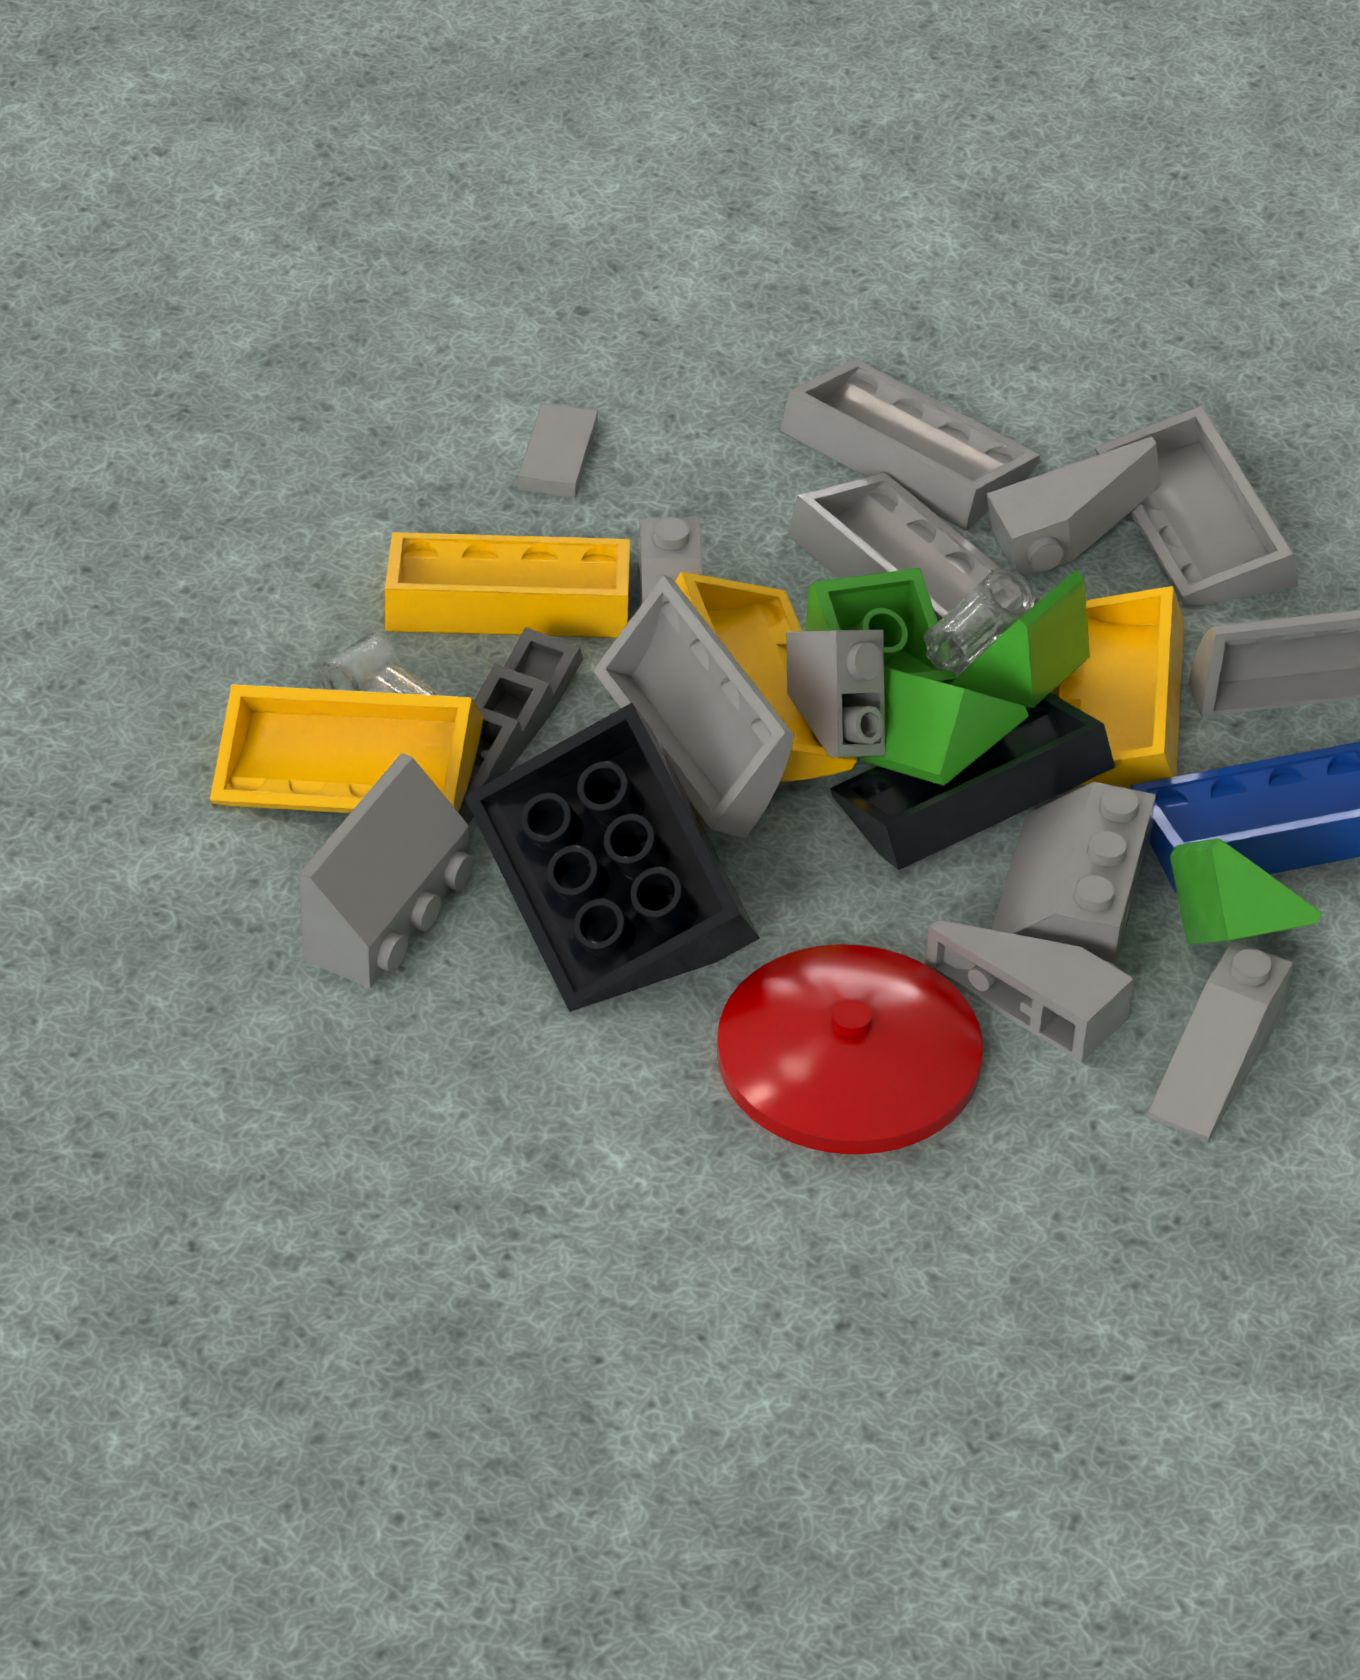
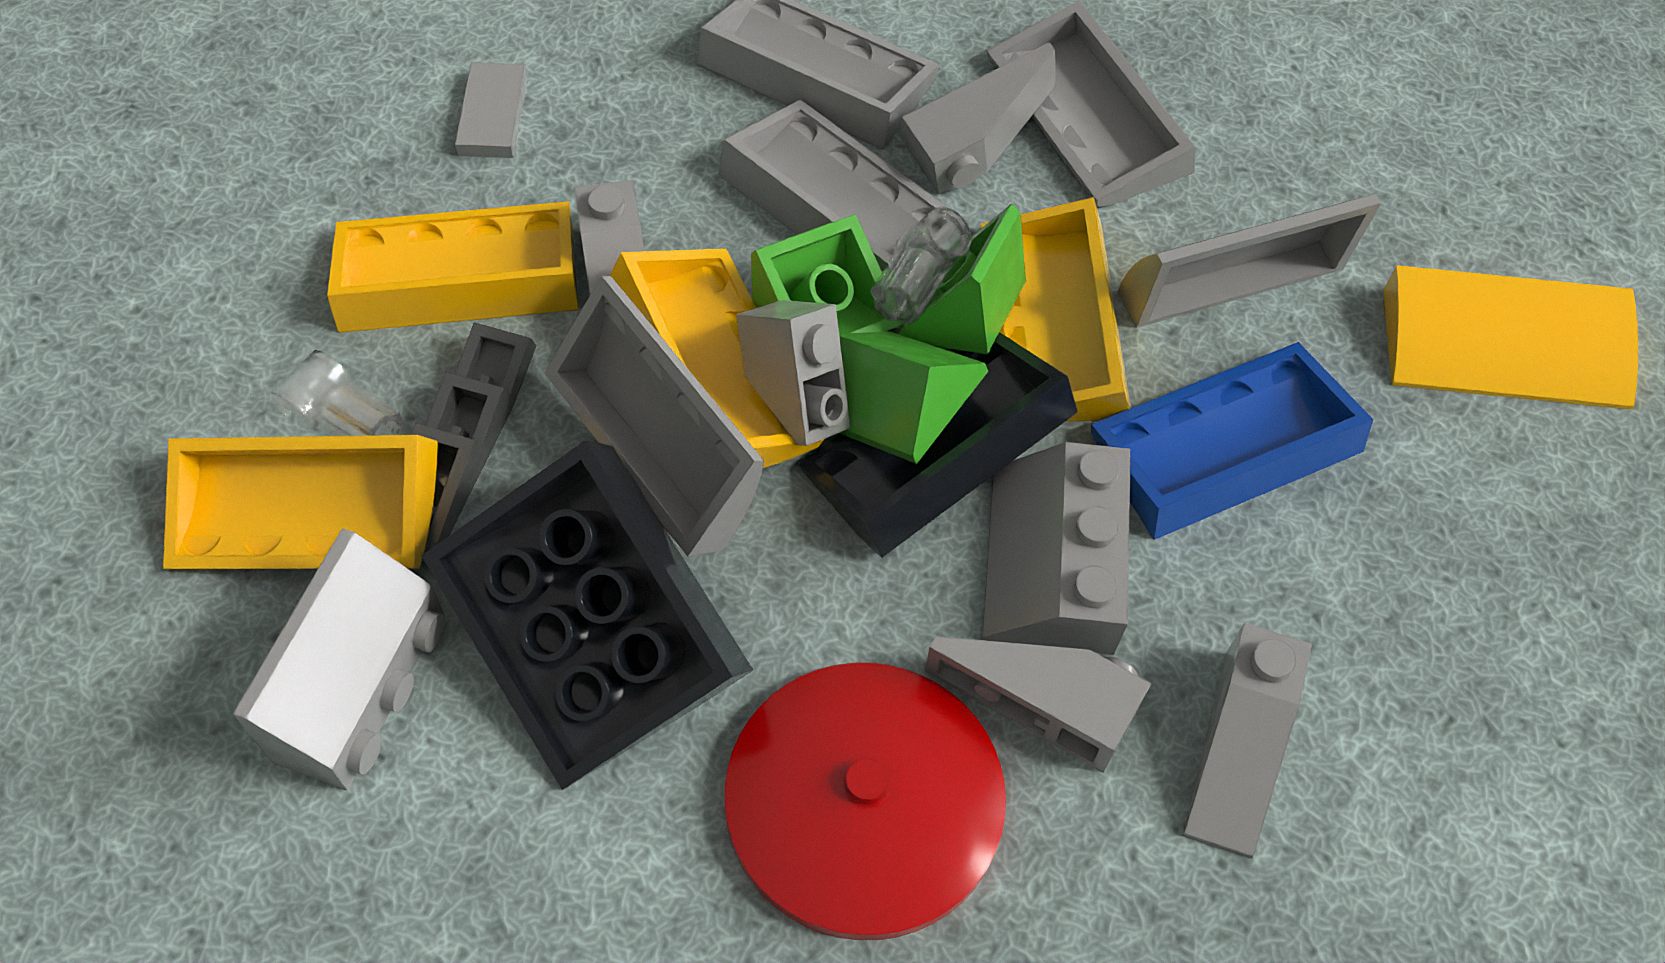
camera: 10 degrees left, 15 degrees up
(1230, 896) = (1233, 575): bright green slope -> none

